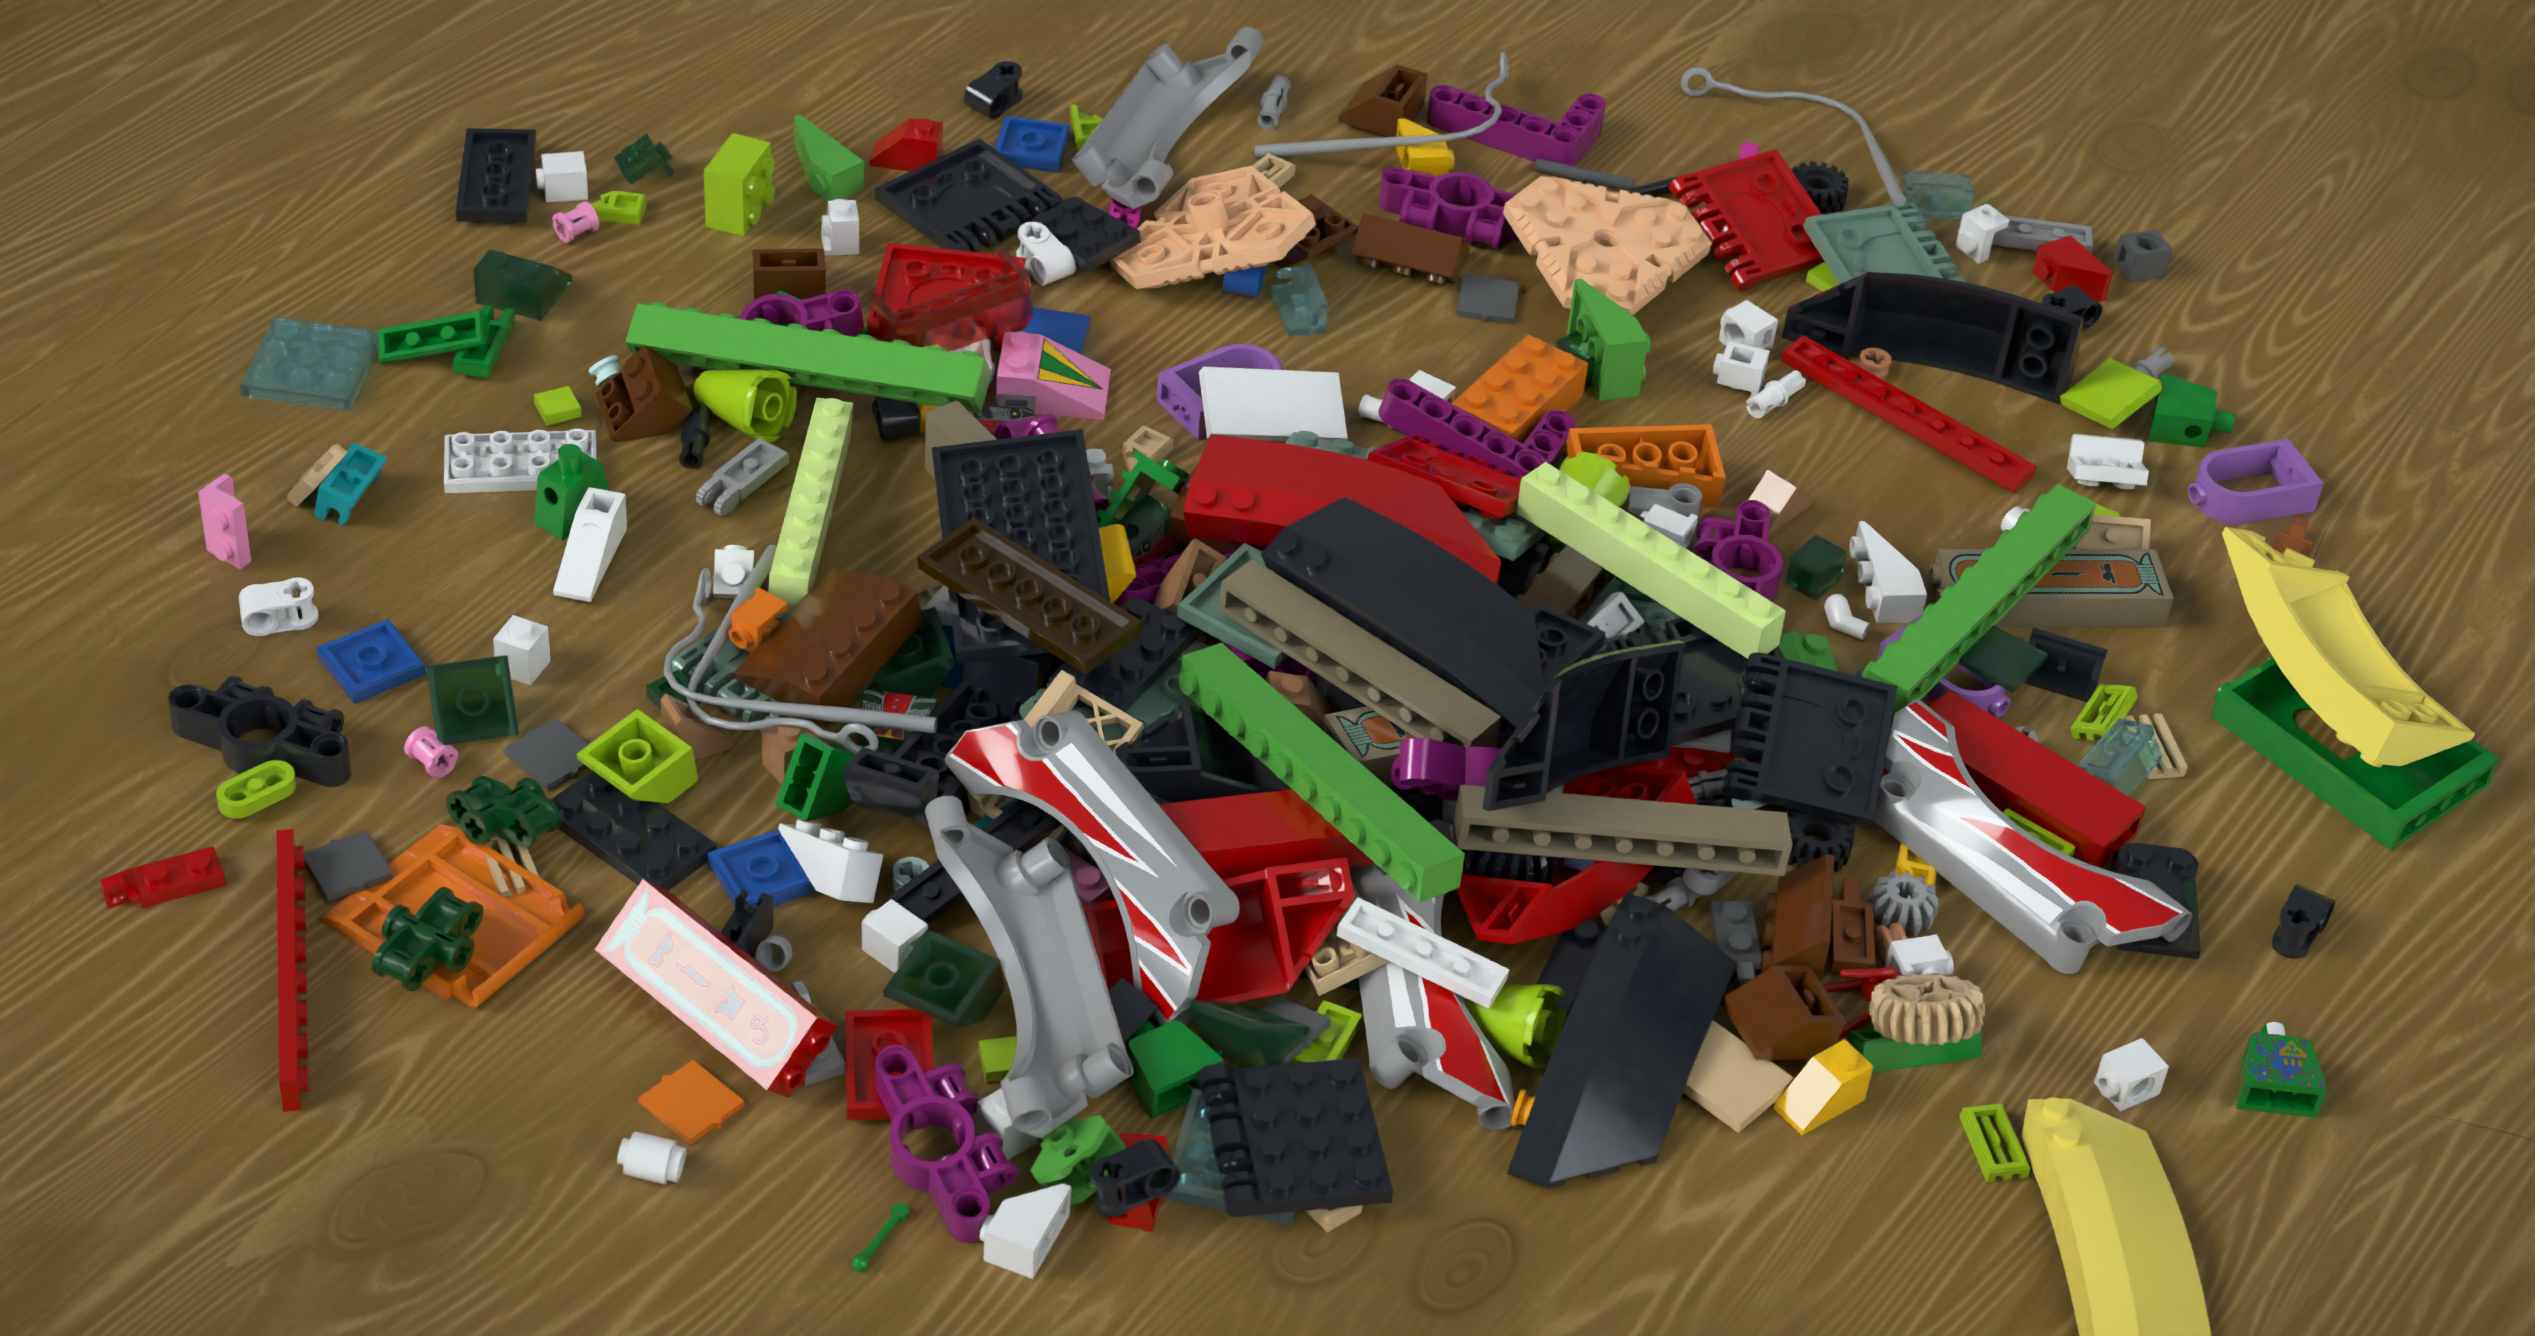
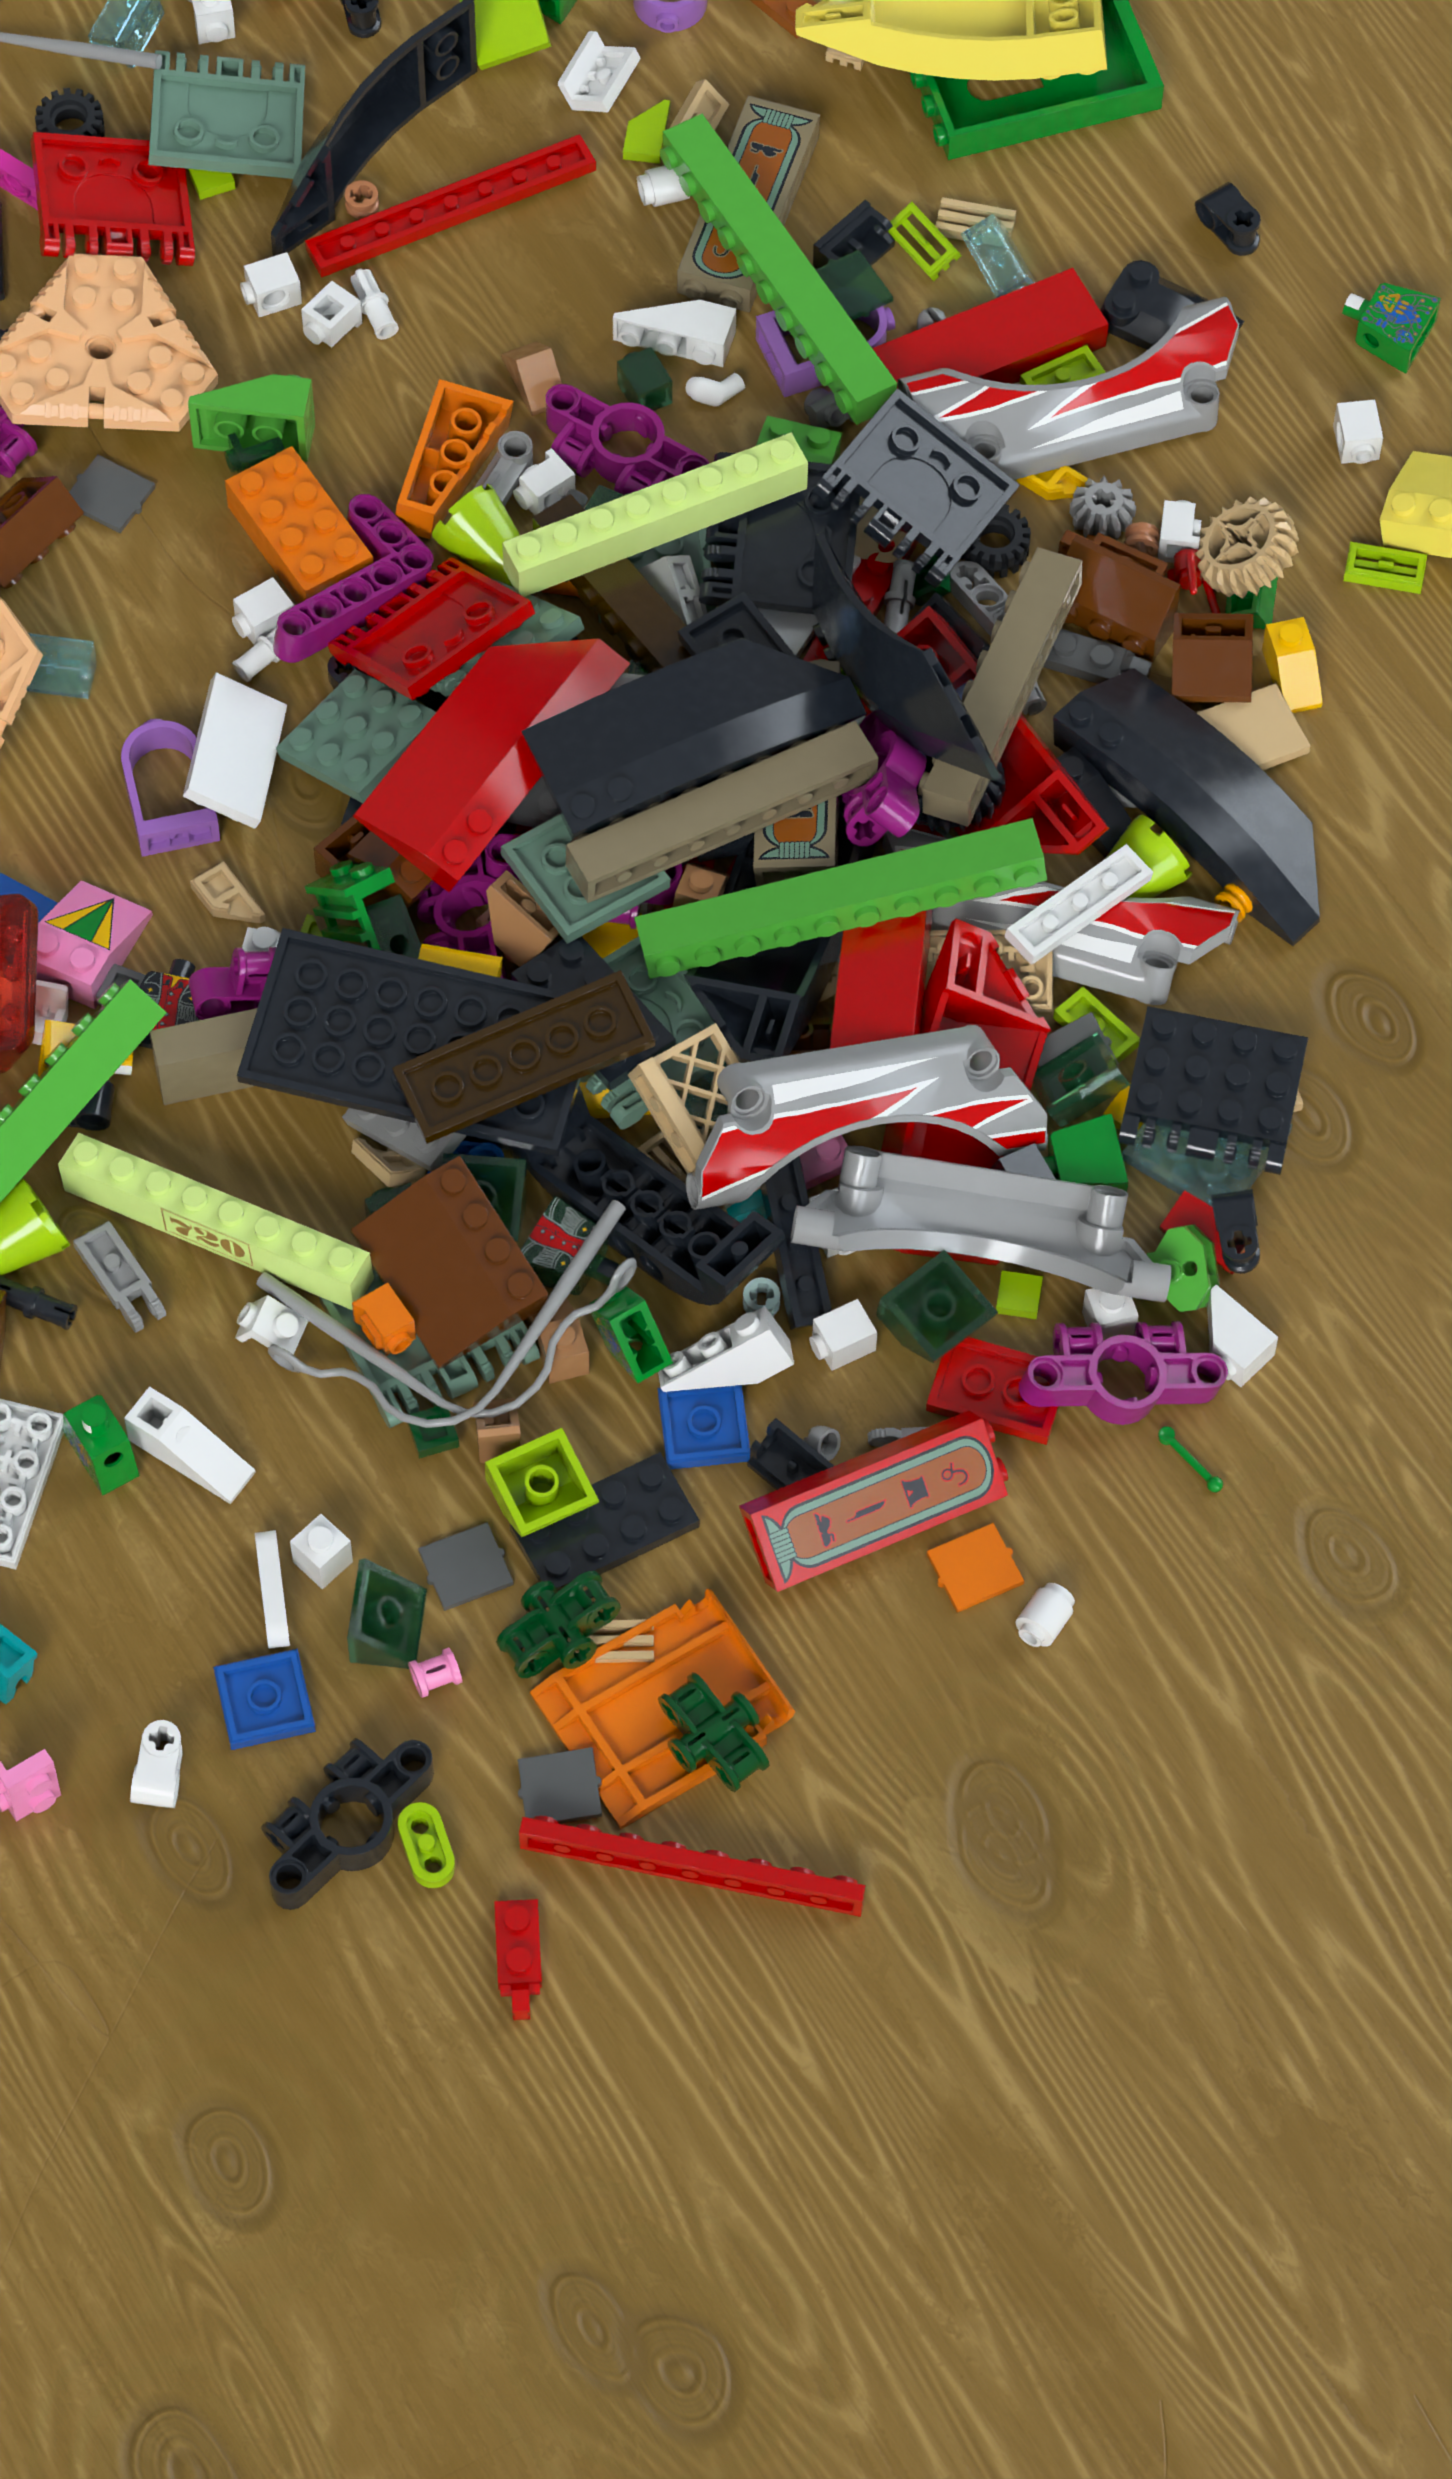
camera: 65 degrees left, 20 degrees up
(446, 633) = (272, 1589): none -> white beam

